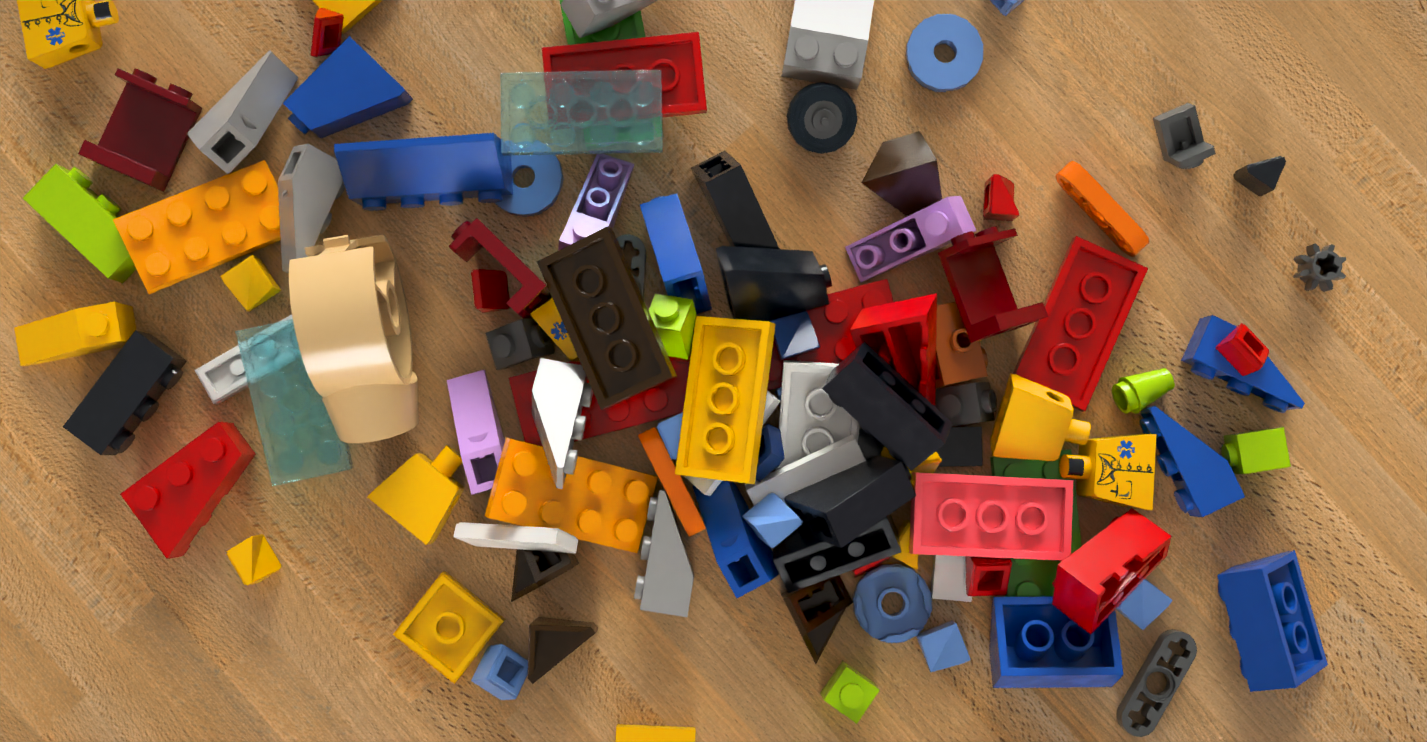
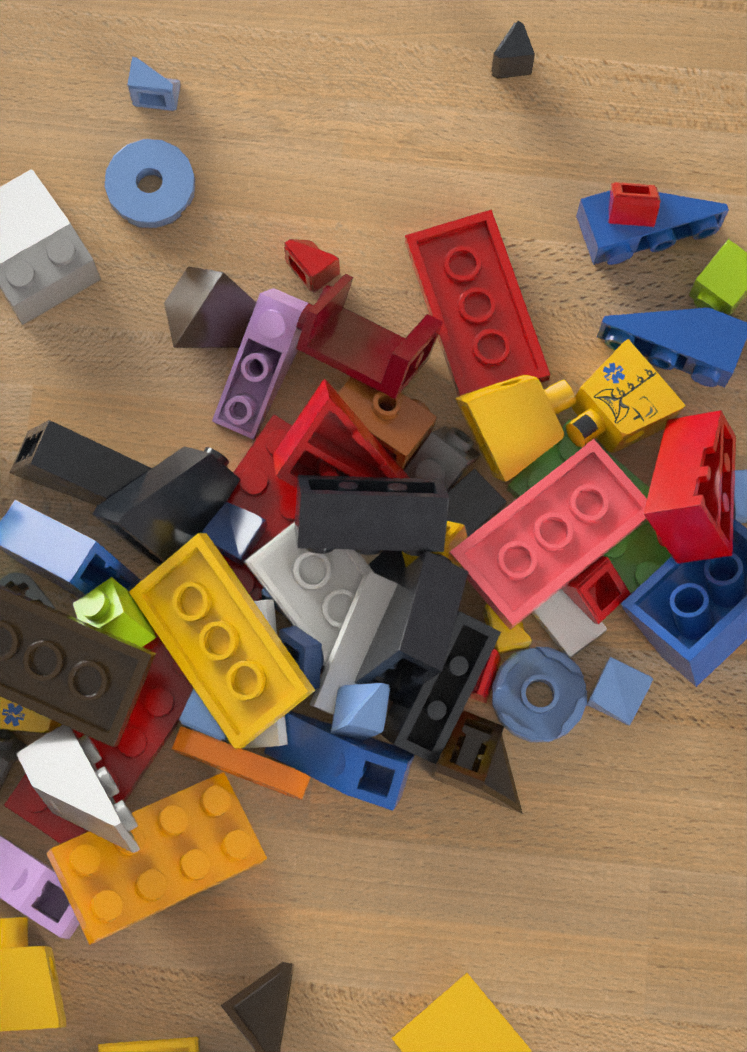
camera: 40 degrees left, 10 degrees down
(516, 537) = (138, 941): white tile -> none
(538, 568) = (180, 947): dark brown slope -> none
(668, 572) = (311, 847): light grey slope -> none
(822, 117) = (89, 326): black wheel -> none
(849, 692) = (573, 805): lime brick -> none
(1102, 208) = (406, 195): orange beam -> none
(1140, 390) = (581, 317): lime cone -> none
(1182, 137) = (419, 79): dark grey bracket -> none
(1329, 263) = (634, 86): dark grey gear -> none

